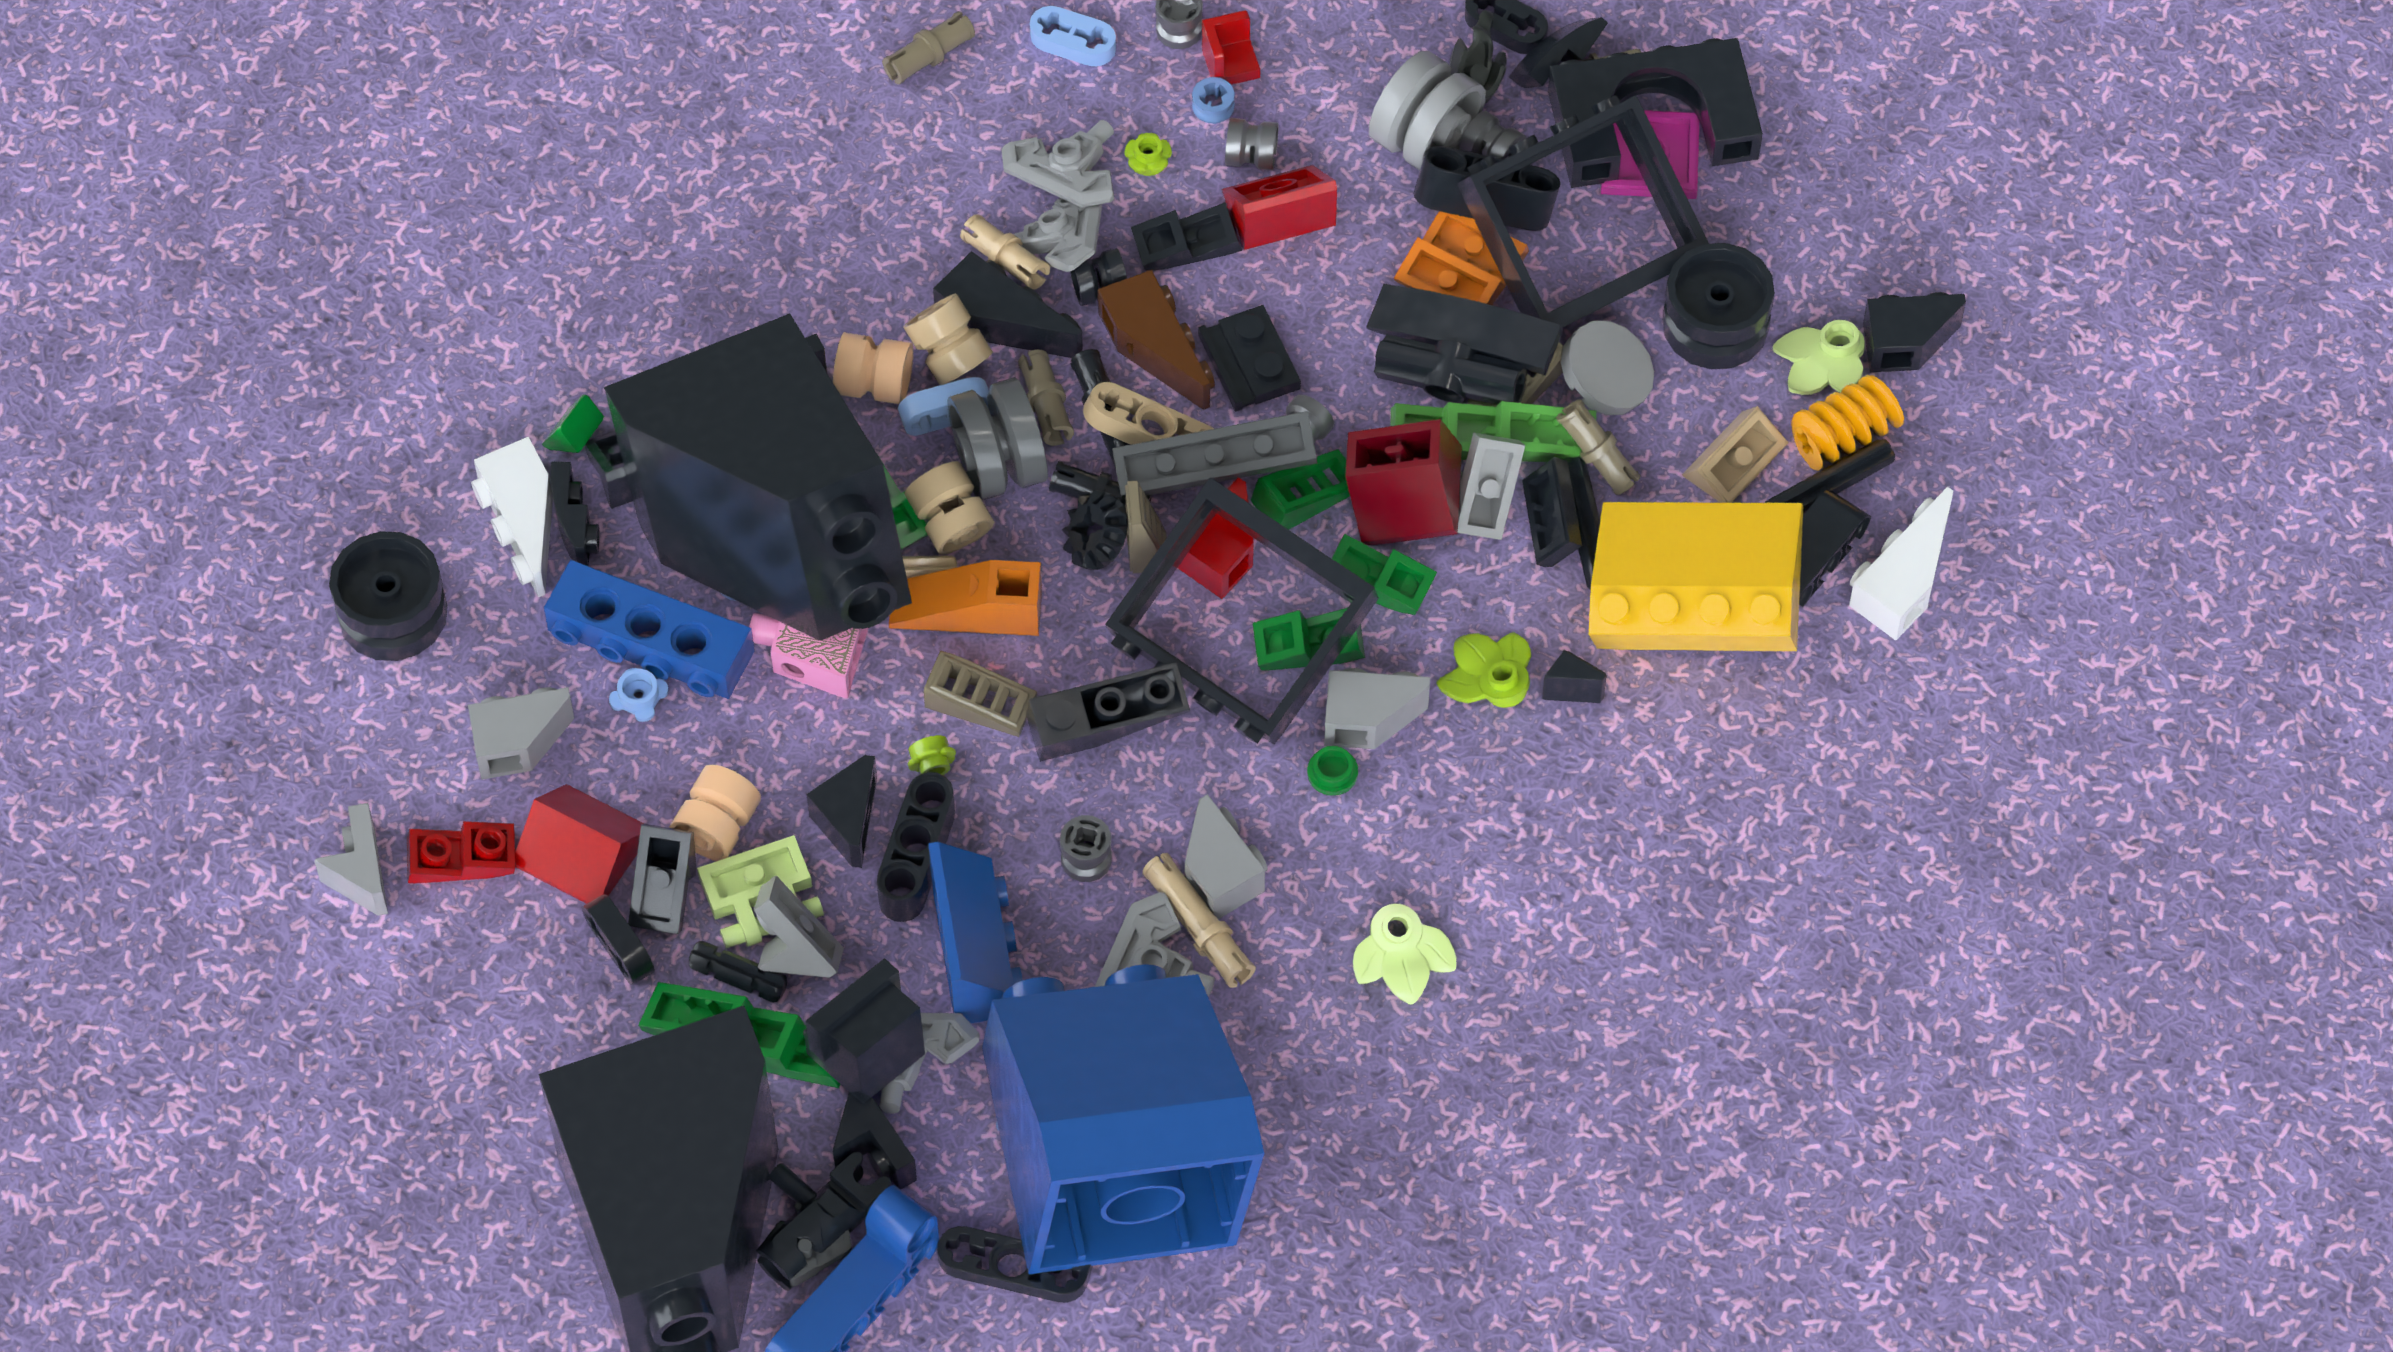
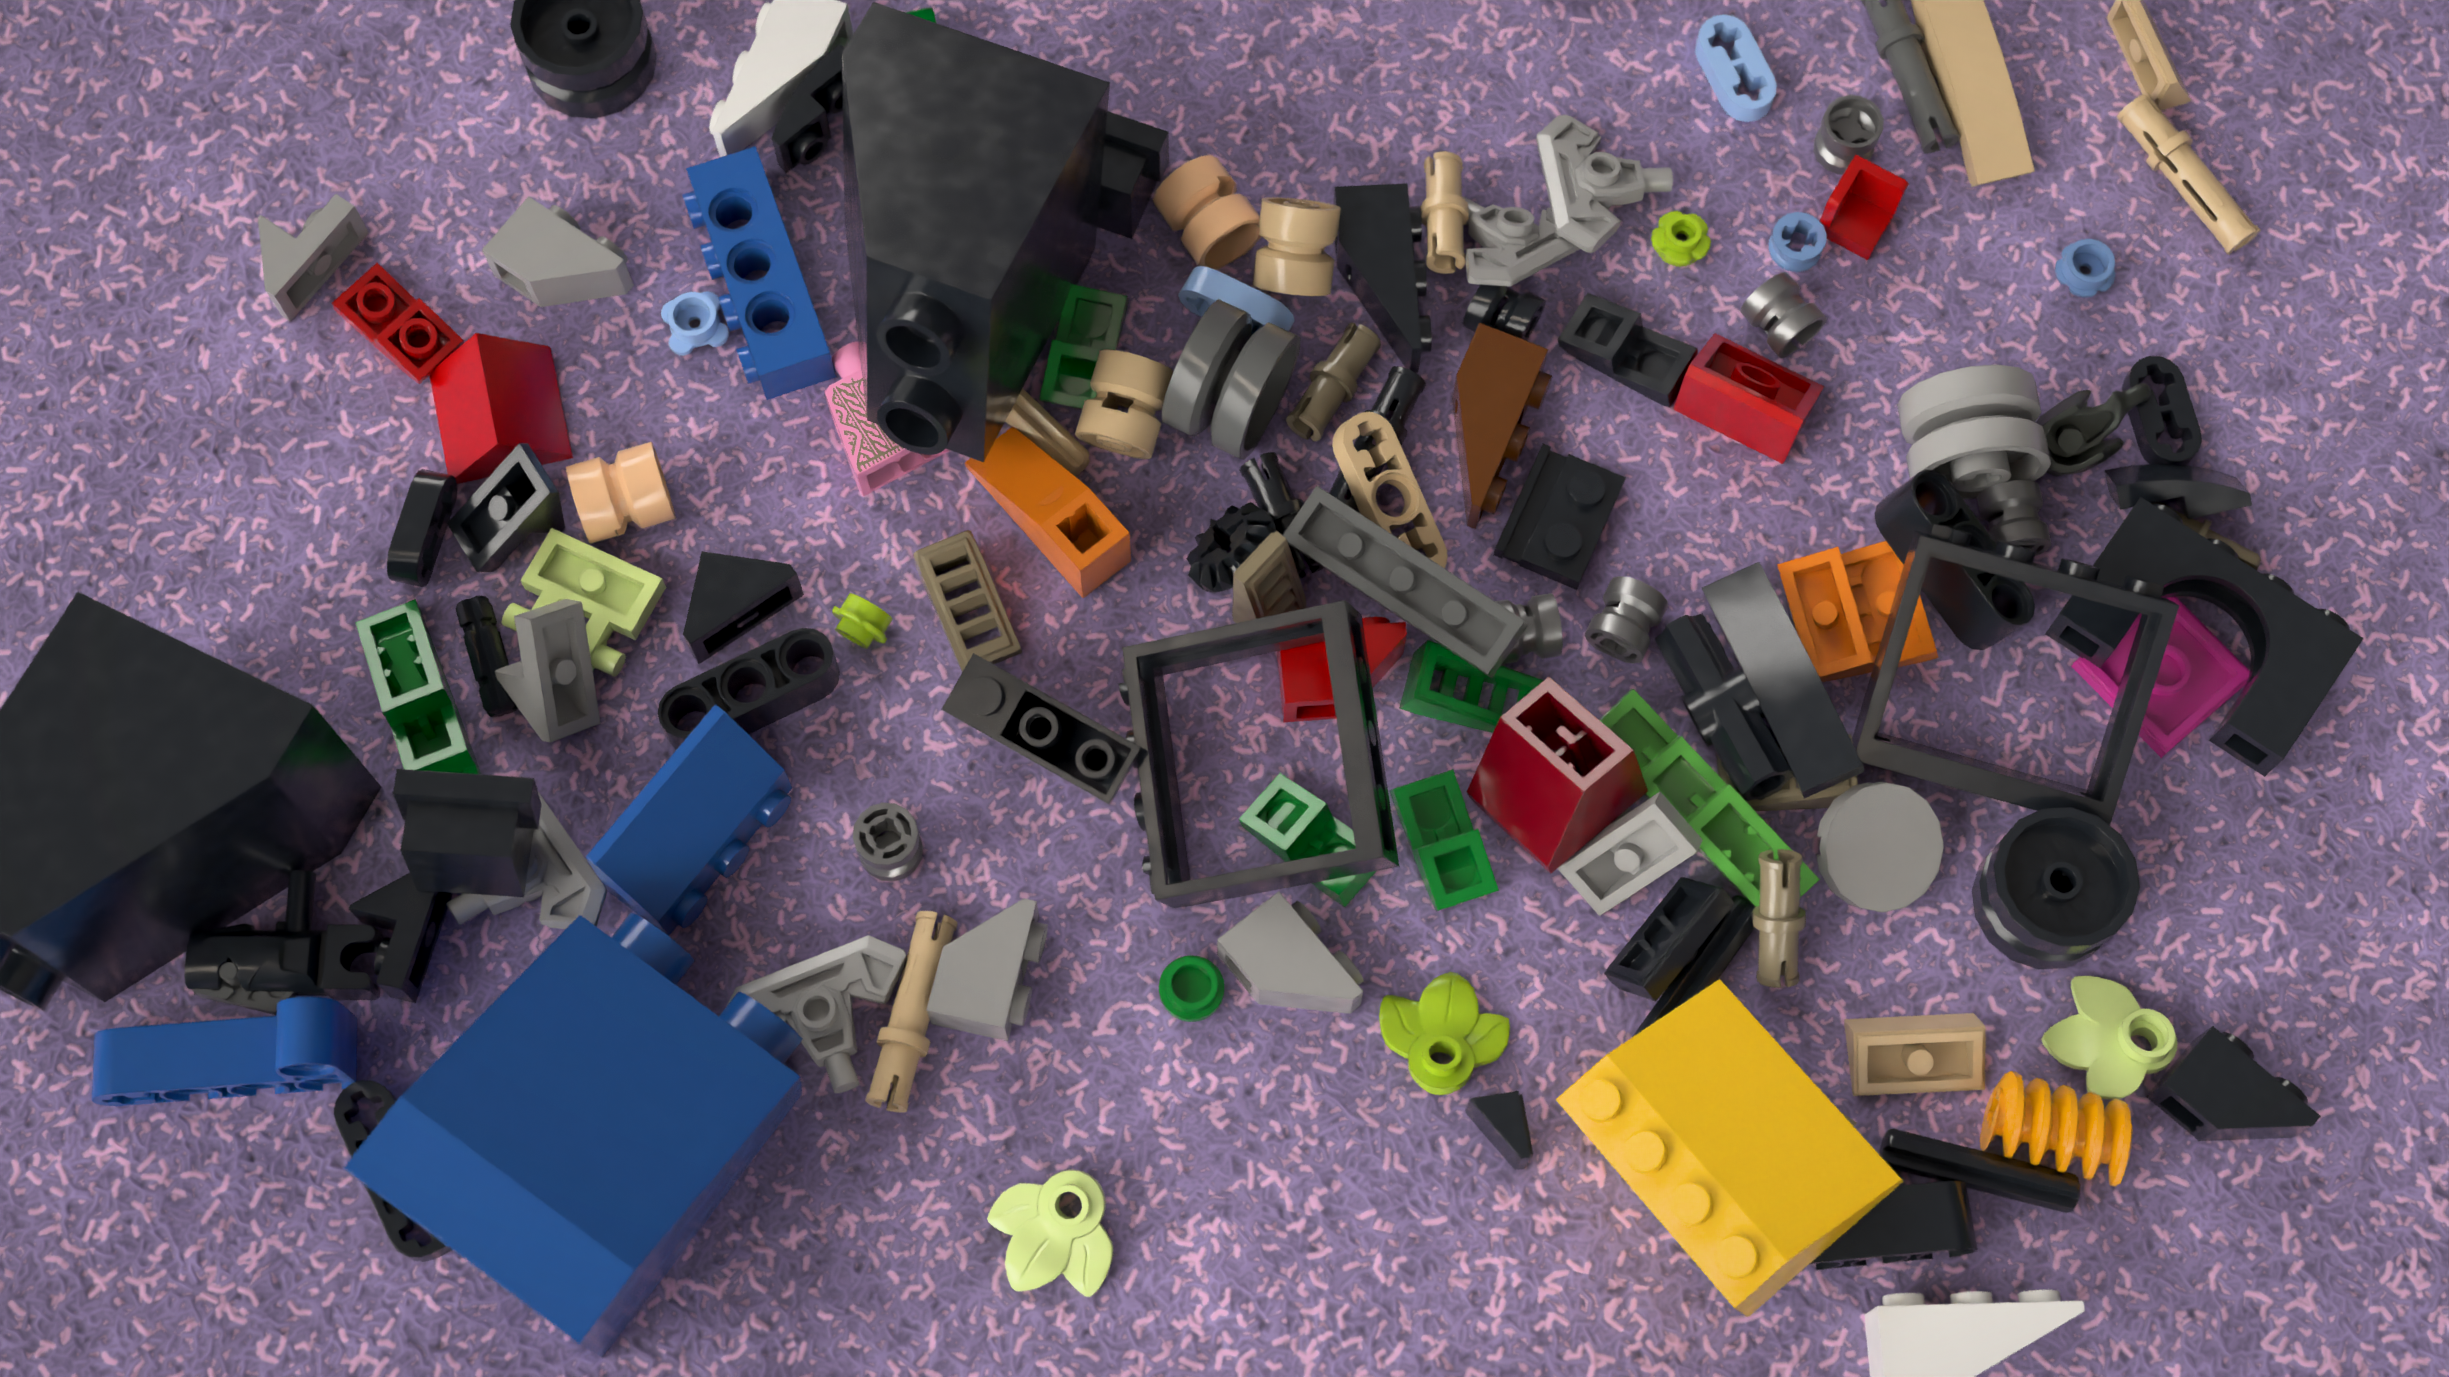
camera: 45 degrees right, 10 degrees up
(1347, 372) = (1626, 619): none -> flat silver wheel

